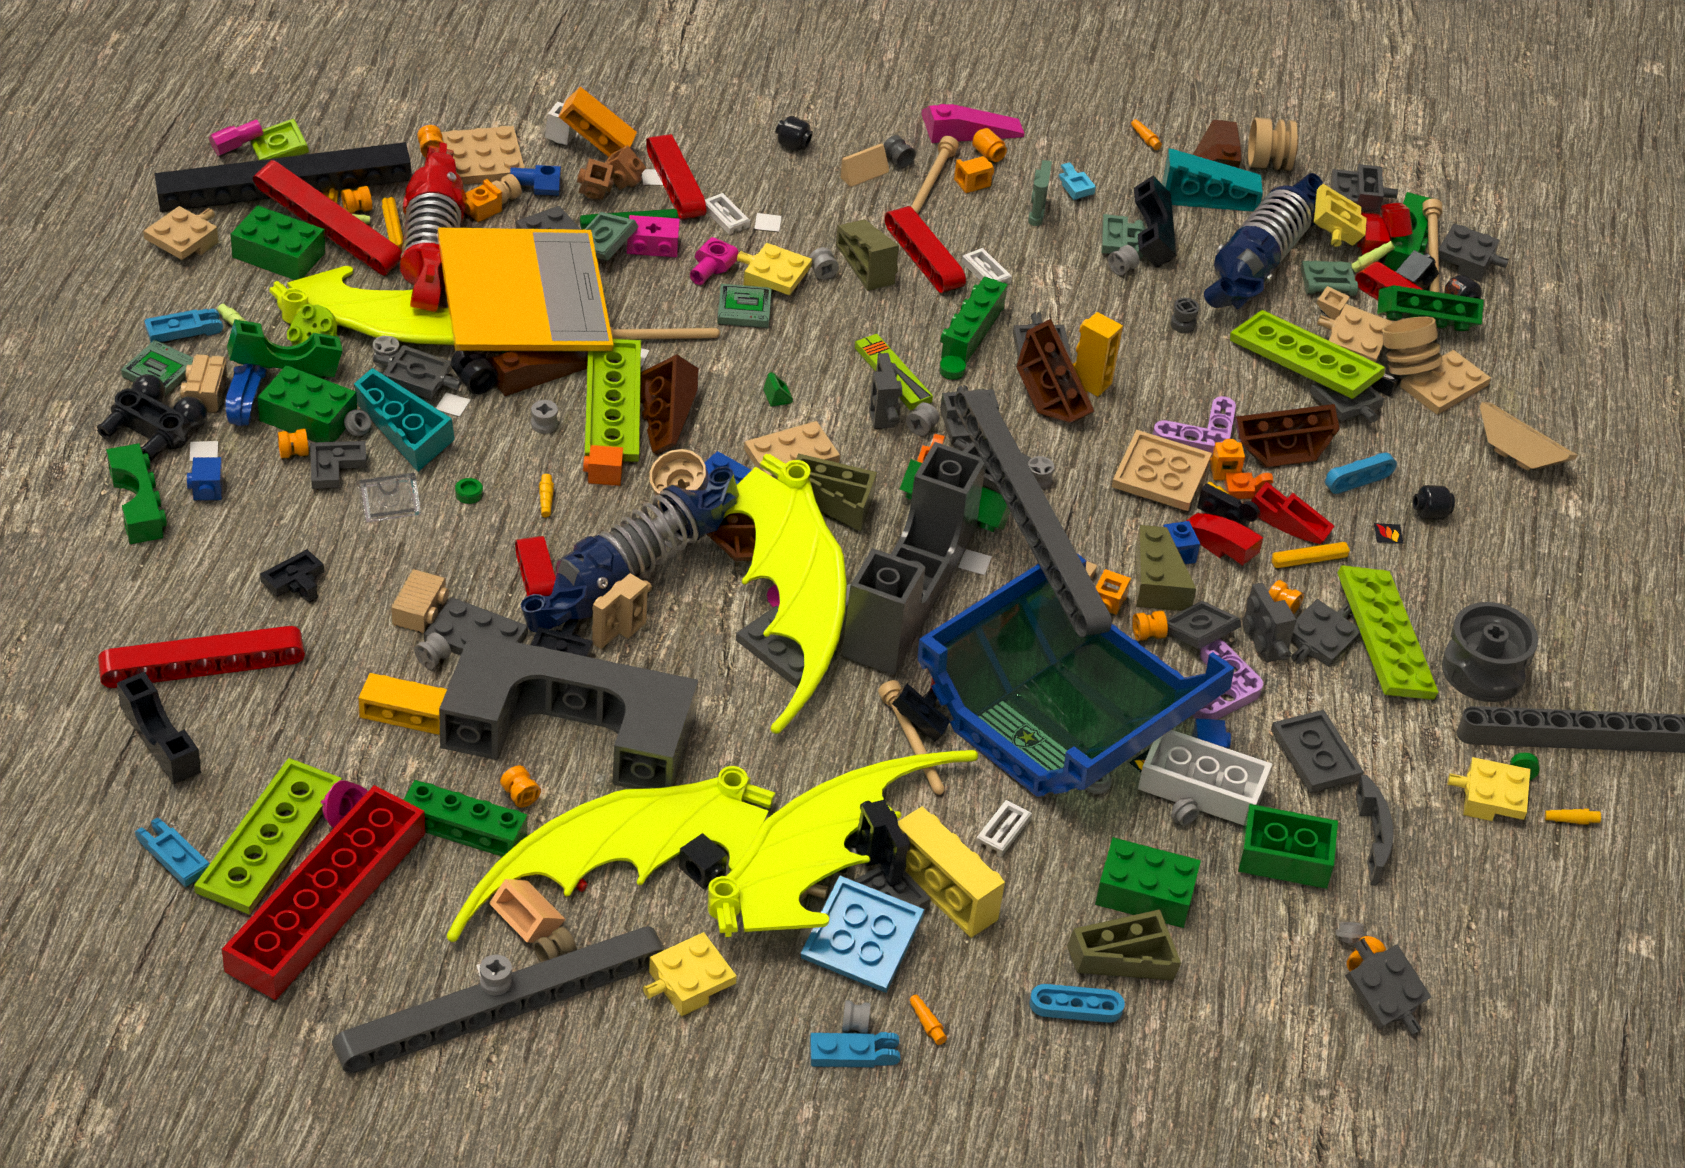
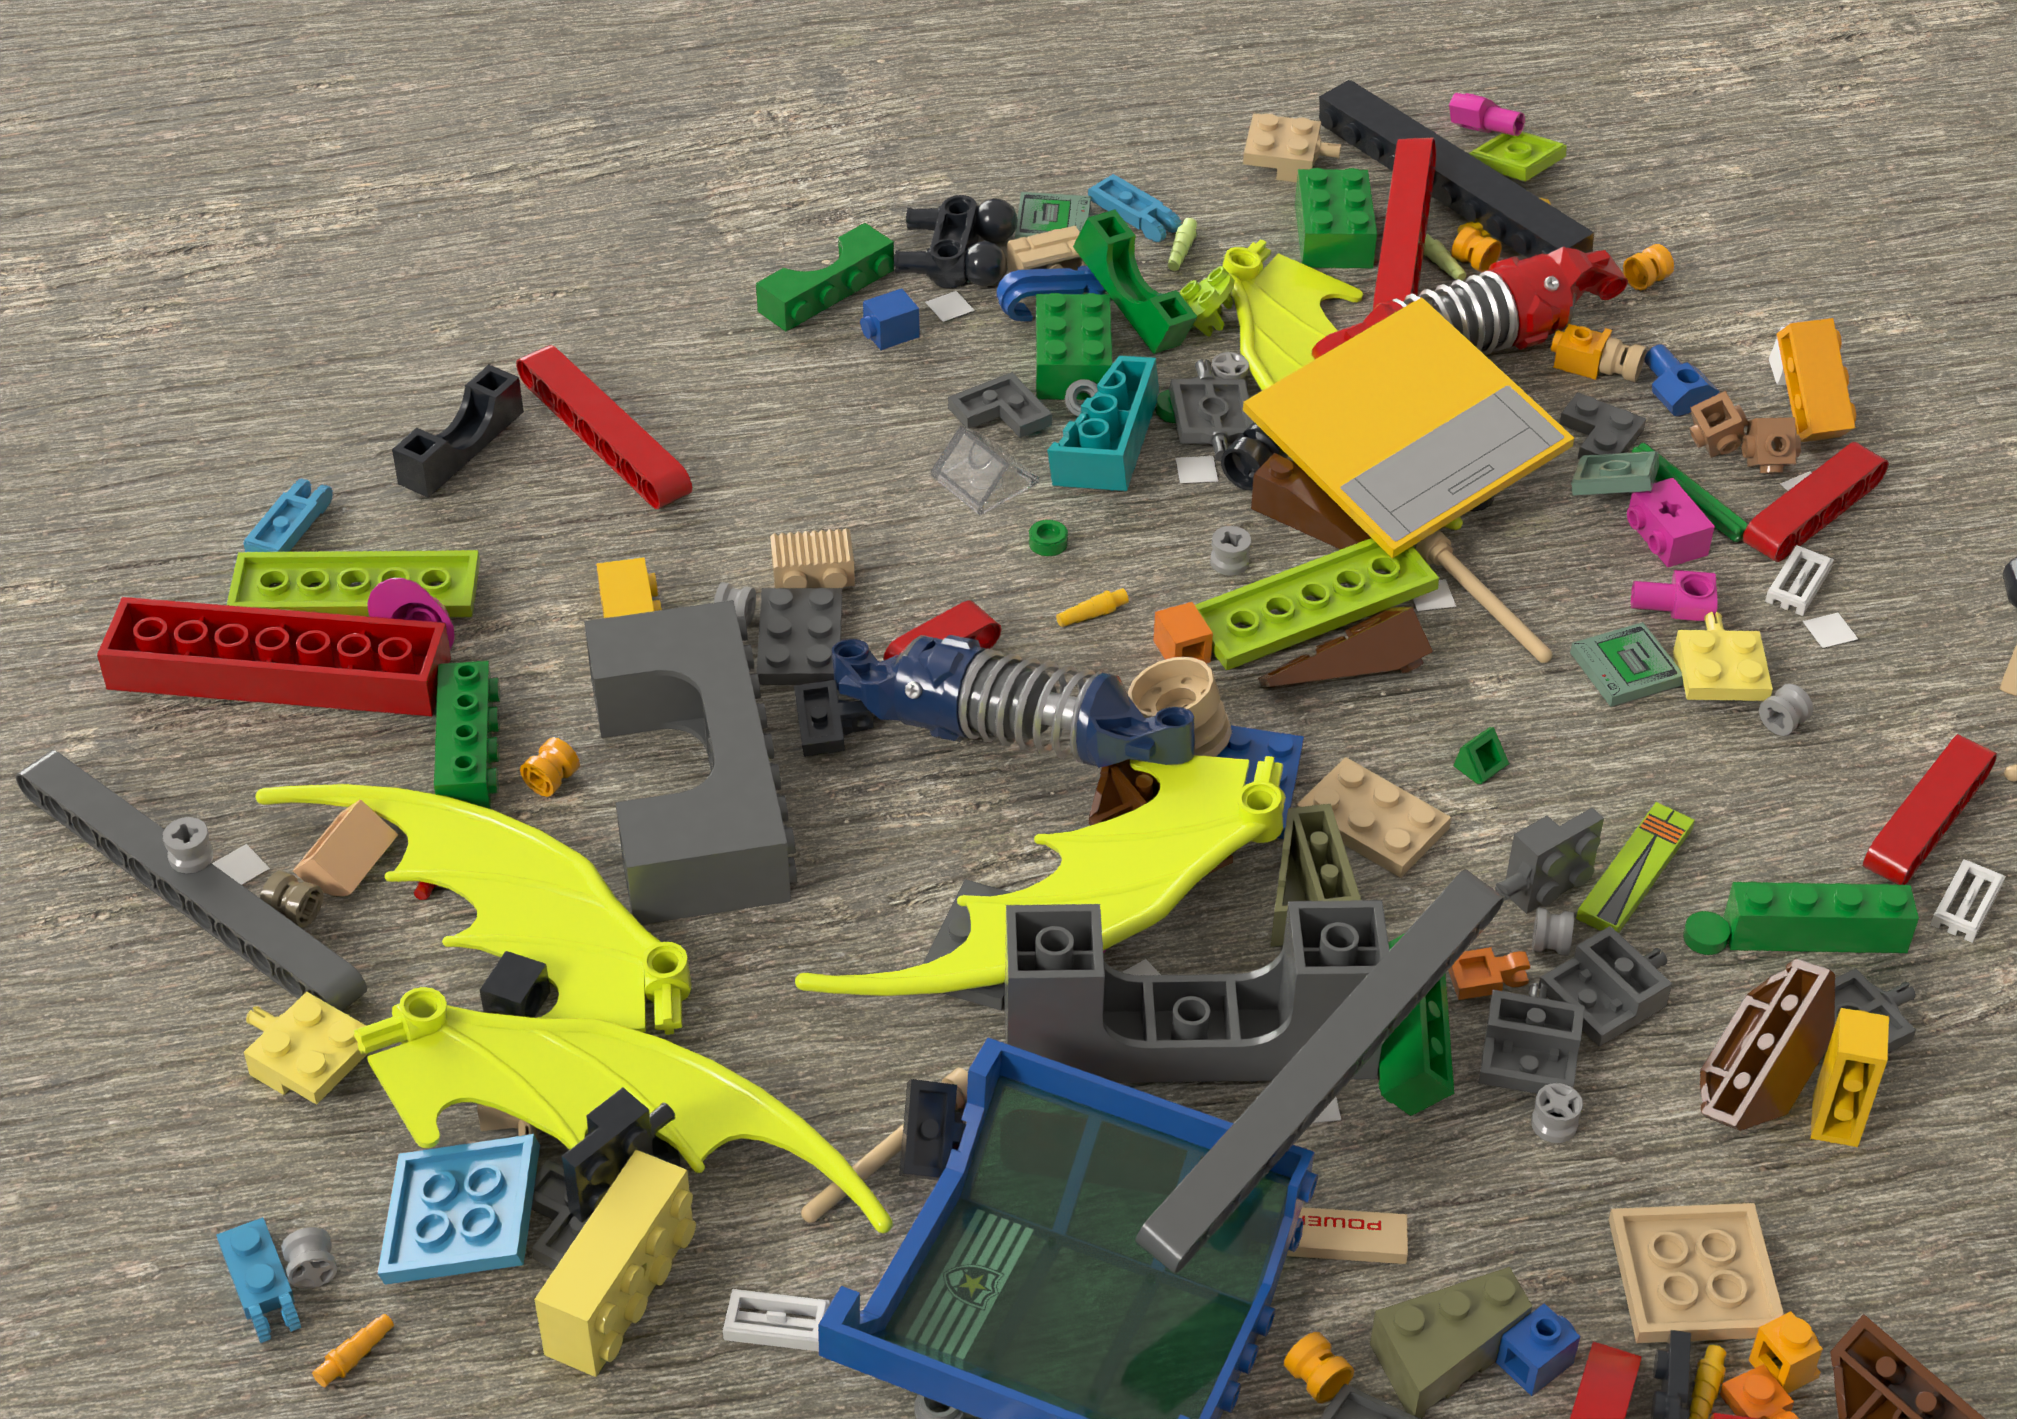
camera: 70 degrees right, 0 degrees up
(294, 576) = (785, 446): black hinge -> none
(299, 442) = (1004, 358): light orange wheel -> none
(484, 153) = (1682, 317): tan plate -> none
(620, 610) = (904, 738): tan plate -> none
(868, 253) = (1849, 747): olive wedge -> none
(1112, 597) = (1350, 1287): light orange brick -> none
(1210, 435) = (1843, 1315): lavender beam -> none

